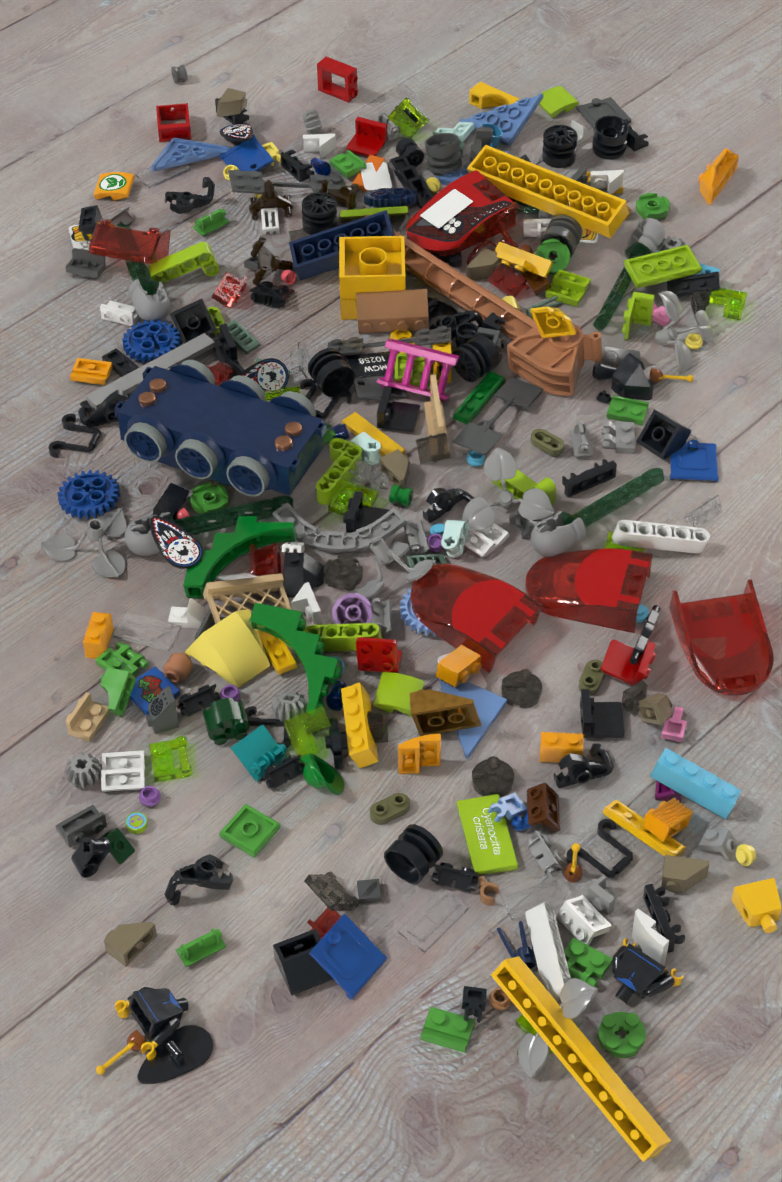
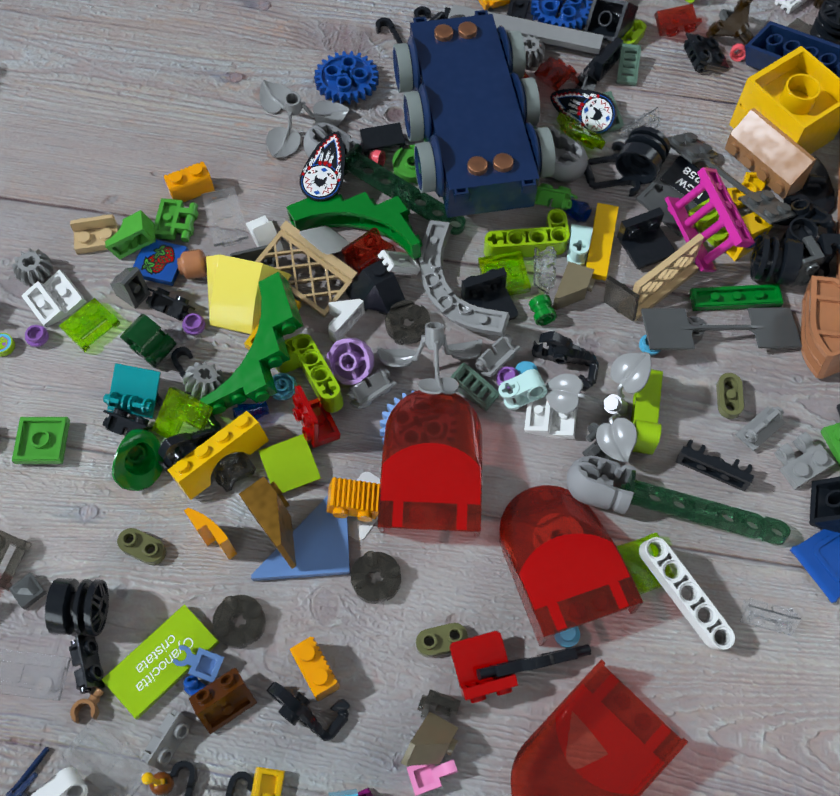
camera: 55 degrees right, 15 degrees up
(600, 718) = (386, 684): black bracket -> none

